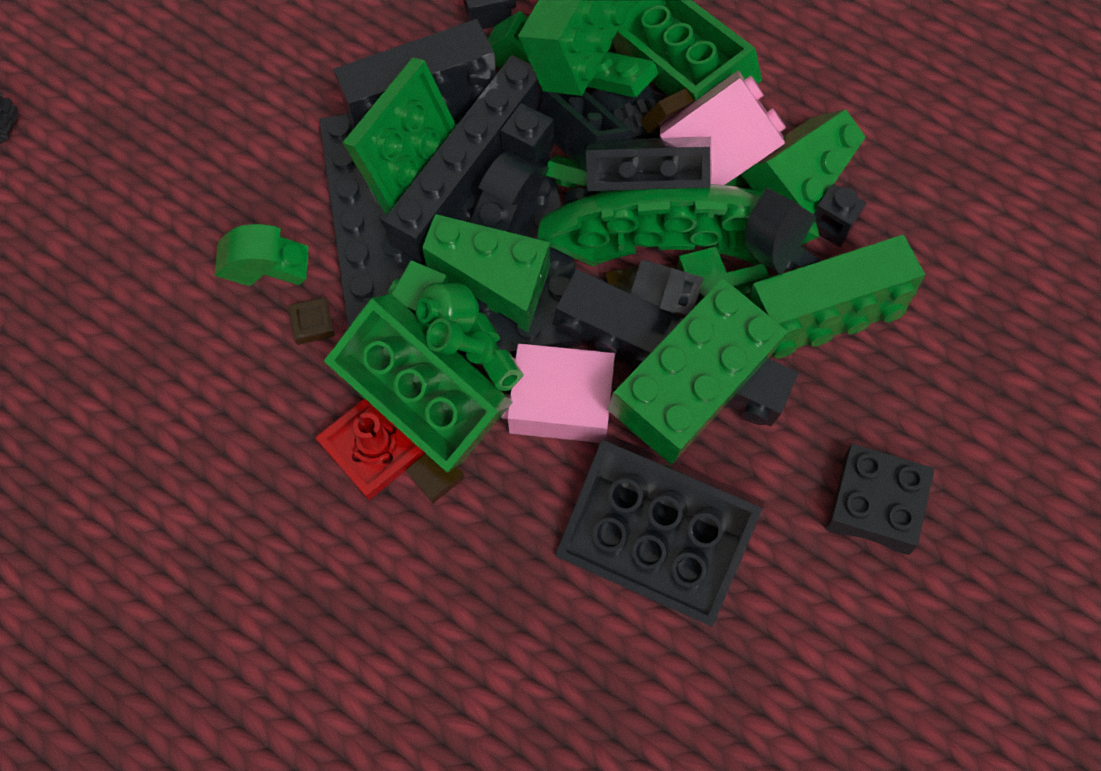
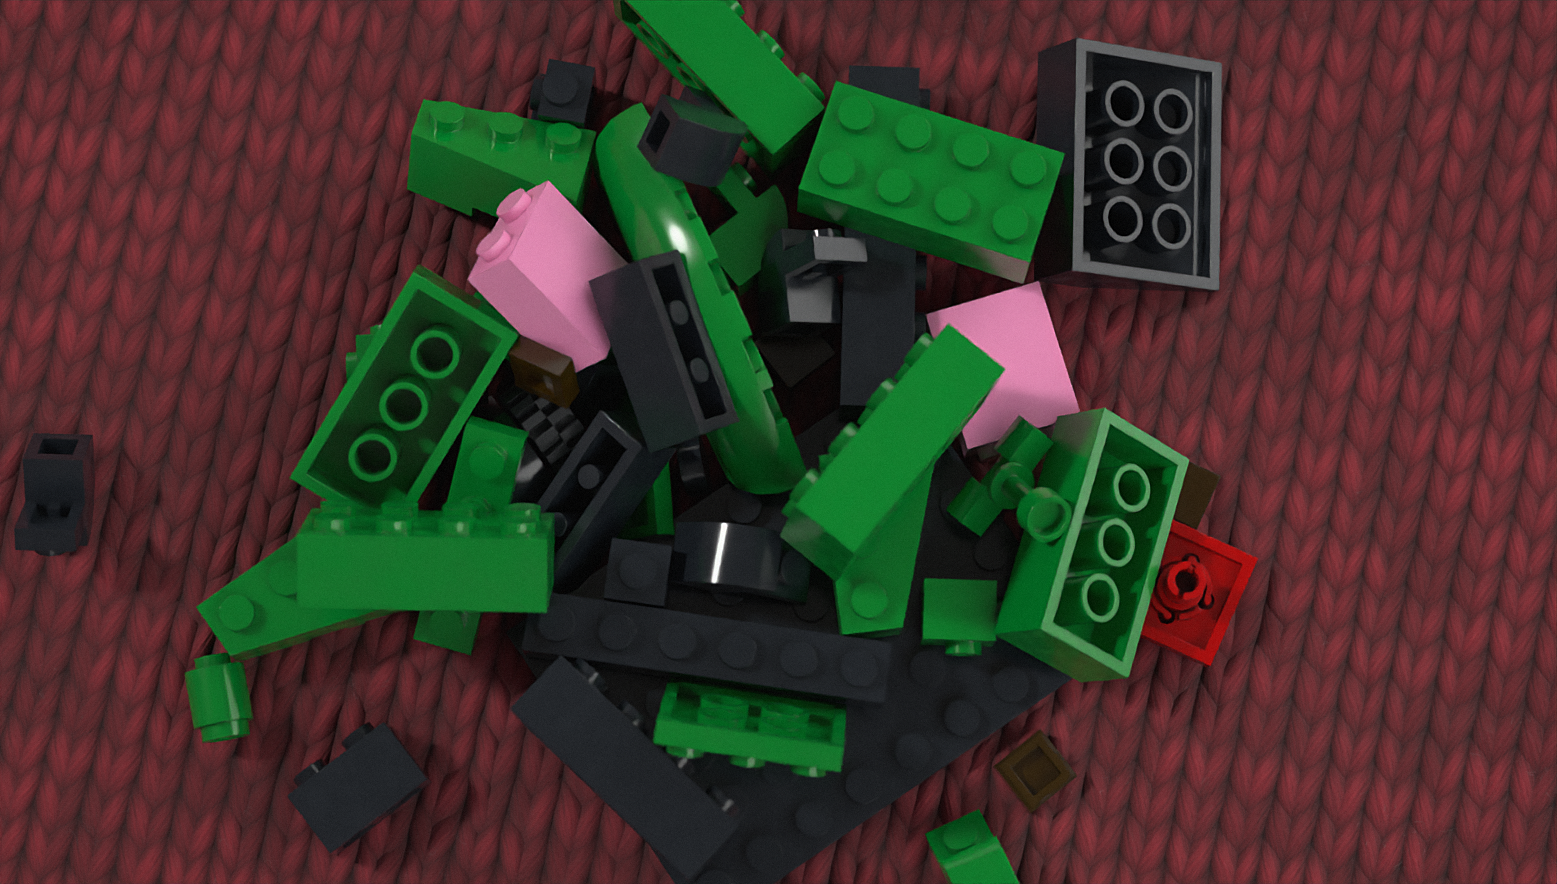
camera: 120 degrees left, 15 degrees up
(449, 302) = (985, 544): green head -> none
(505, 39) = (458, 685): green brick -> none
(526, 253) = (886, 458): none -> green brick

